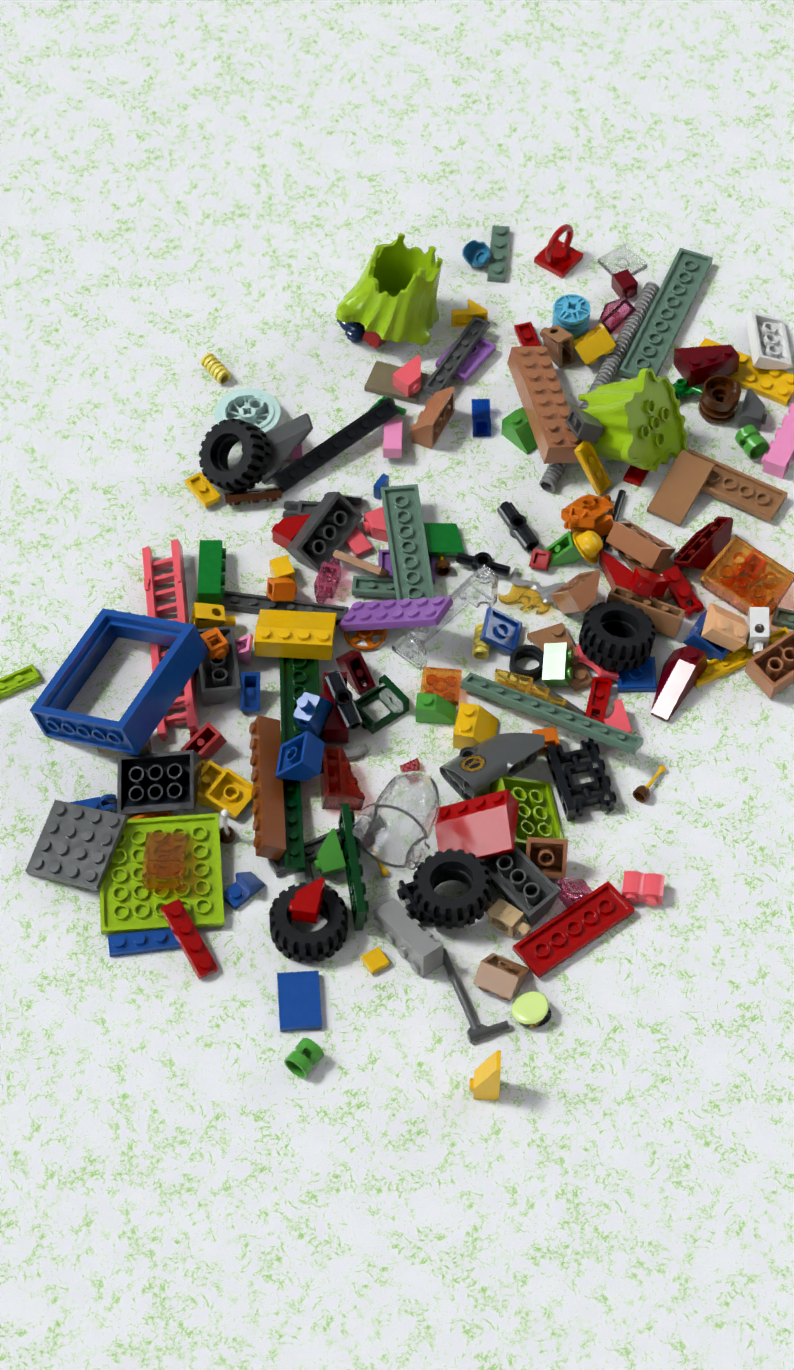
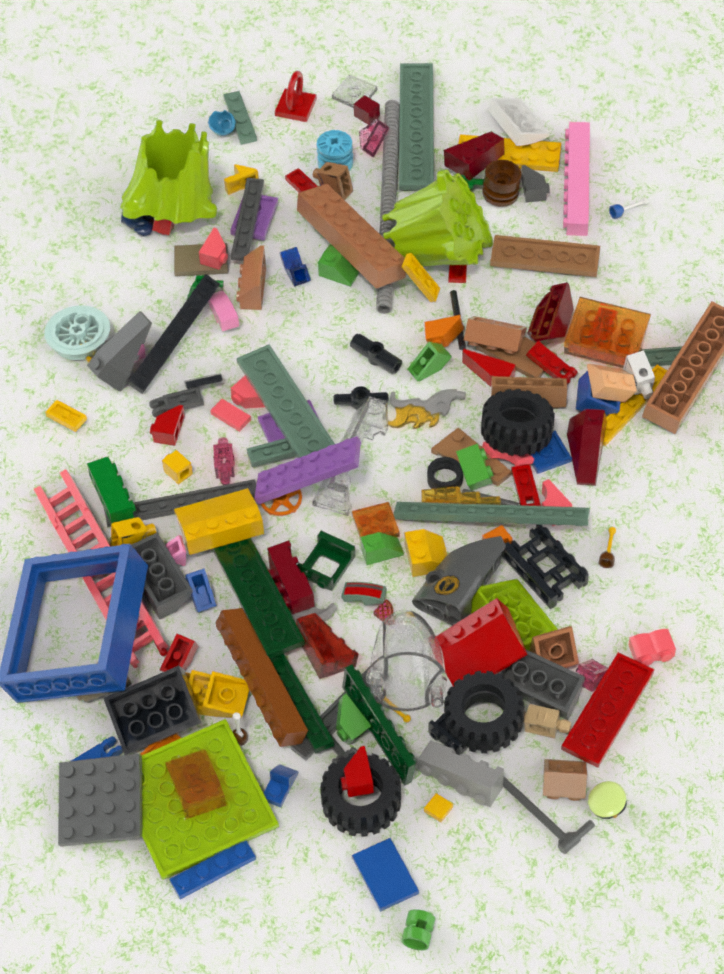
camera: 20 degrees left, 0 degrees up
(189, 939) = (252, 853): red plate -> none
(215, 368) = (26, 299): light yellow piece -> none
(215, 643) = (152, 555): orange brick -> none
(217, 448) = (65, 372): black tyre -> none
(253, 496) = (116, 406): reddish brown plate -> none
(281, 589) = (185, 483): orange brick -> none
(300, 758) = (281, 637): blue slope -> none
(312, 713) = (275, 587): blue torso -> none
(324, 531) = (201, 416): dark grey slope -> none
(347, 710) = (291, 559): black piece -> none
(357, 671) = (286, 529): dark red slope -> none
(361, 563) = (249, 434): medium nougat tile -> none
(383, 481) = (232, 357): blue tile -> none
(402, 746) = (367, 592): none -> slope
(443, 539) = (314, 387): green tile -> none
(443, 567) = (324, 412): reddish brown hinge -> none
(480, 648) = (393, 469): light yellow piece -> none
(487, 1078) = (604, 883): yellow slope -> none
(501, 631) = (407, 453): blue tile -> none
(540, 559) = (411, 376): red tile -> none
(577, 593) = (465, 394): nougat slope -> none
(584, 425) = (402, 241): dark grey slope -> none
(586, 510) = (433, 319): orange plate -> none
(588, 544) = (451, 347): yellow hat -> none
(594, 344) = (367, 169): yellow slope -> none
(648, 583) = (522, 365): red slope -> none
(680, 488) = (505, 271): medium nougat tile -> none
(751, 441) = (545, 210): bright green wheel -> none

